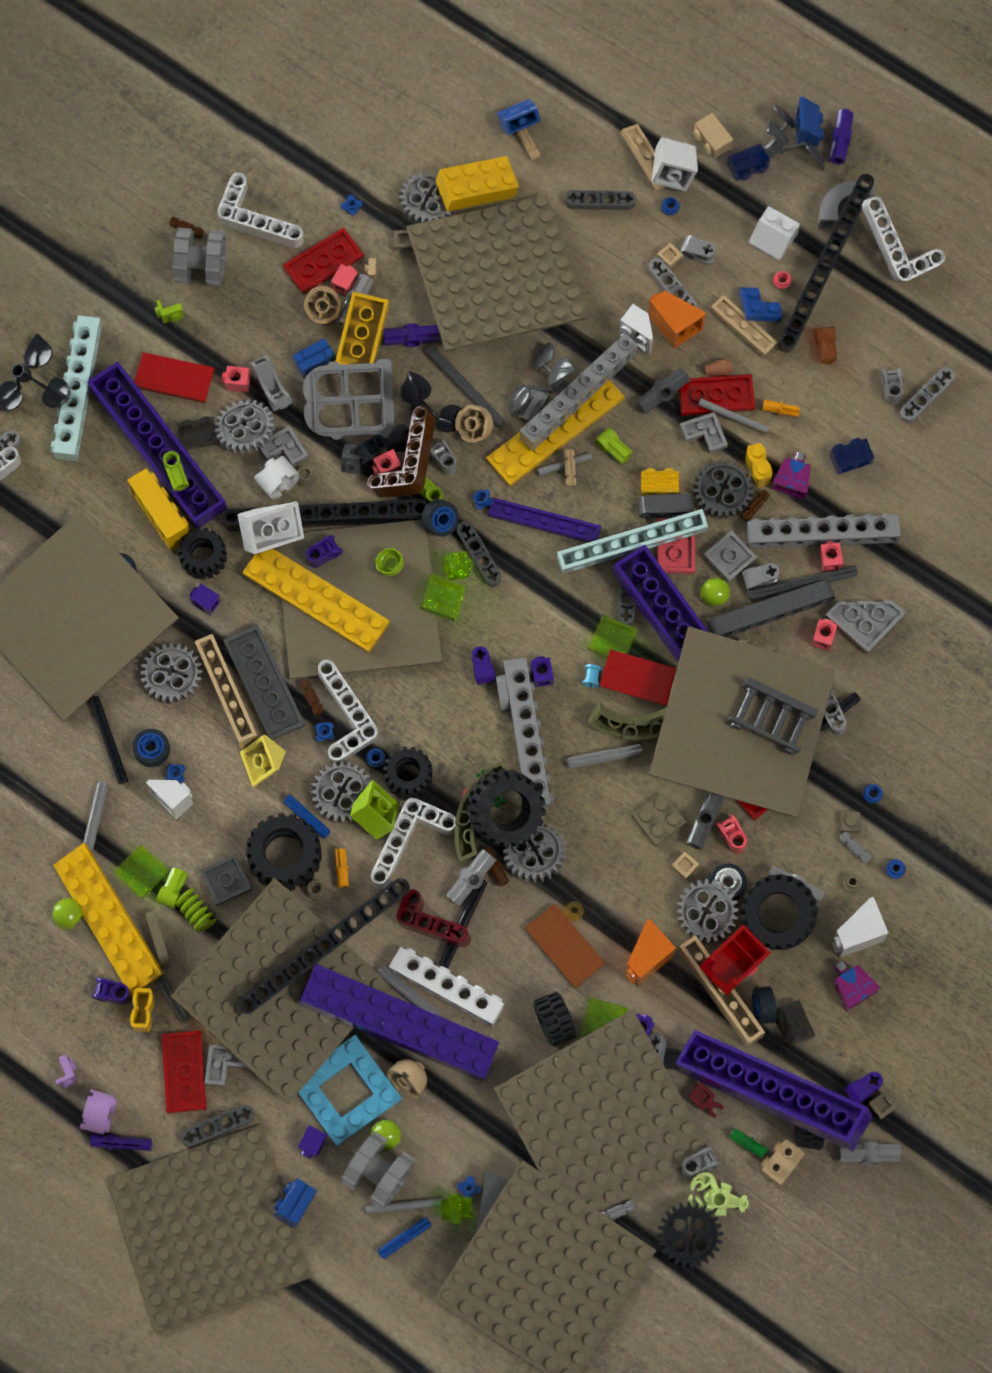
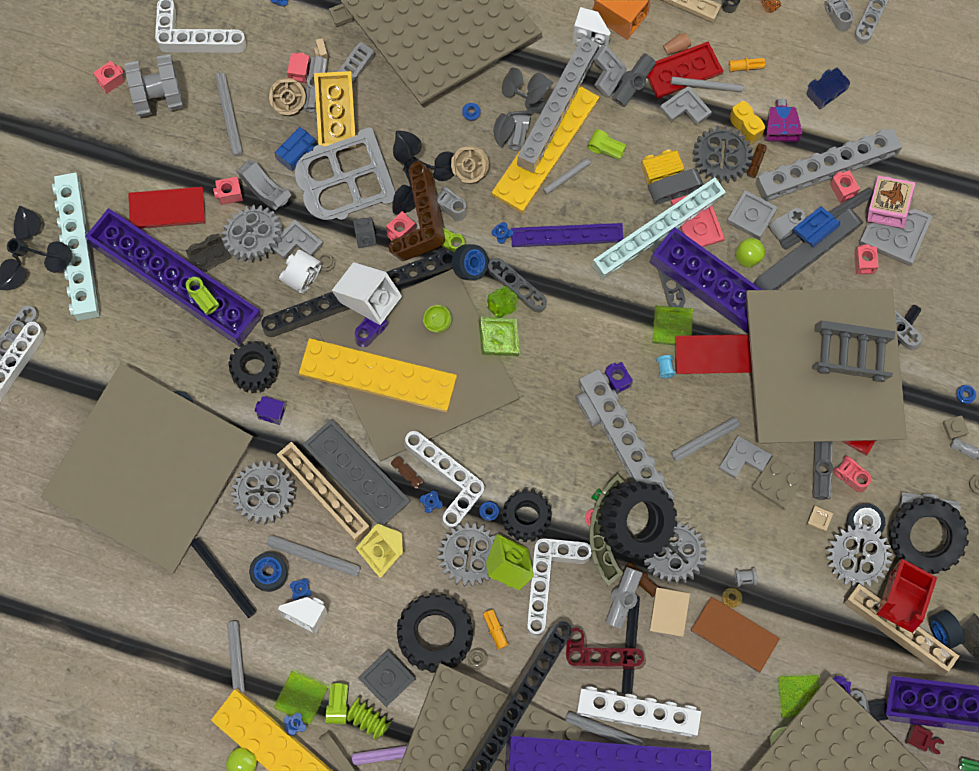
camera: 20 degrees left, 0 degrees up
(122, 896) = (290, 728): none -> blue plate
(158, 508) = (196, 337): yellow brick -> none
(162, 241) = (109, 84): none -> coral brick
(169, 314) = (141, 149): lime bracket -> none
(176, 223) = (118, 61): reddish brown axle -> none
(190, 946) = (378, 755): none -> lavender axle
(198, 746) = (313, 555): none -> light grey axle
(262, 308) = (228, 114): none -> light grey axle
(270, 527) = (311, 321): white slope -> none
(302, 812) = (439, 588): blue axle -> none
(322, 260) = (271, 56): red tile -> none
(331, 516) = (367, 292): none -> white slope
(370, 448) = (380, 217): black piece -> none
(410, 278) = (357, 52): none -> light grey slope
(411, 335) = (380, 99): dark purple piece -> none
(463, 384) = (443, 130): dark grey axle -> none
(483, 669) = (561, 393): dark purple piece -> none
(492, 377) = (471, 116): none -> blue plate
(510, 905) = (670, 612): none -> tan sticker
(554, 1019) = (756, 710): black tyre -> none
(569, 467) = (573, 177): tan axle -> none
(593, 896) = (746, 577): none -> light grey bush
(627, 726) = (721, 402): olive brick -> none
(634, 780) = (744, 452): none -> light grey plate
(645, 374) = (612, 70): none -> light grey plate
(649, 954) = (819, 615): orange slope -> none
(786, 587) = (816, 226): none -> blue plate
(869, 586) = (891, 201): none -> brick

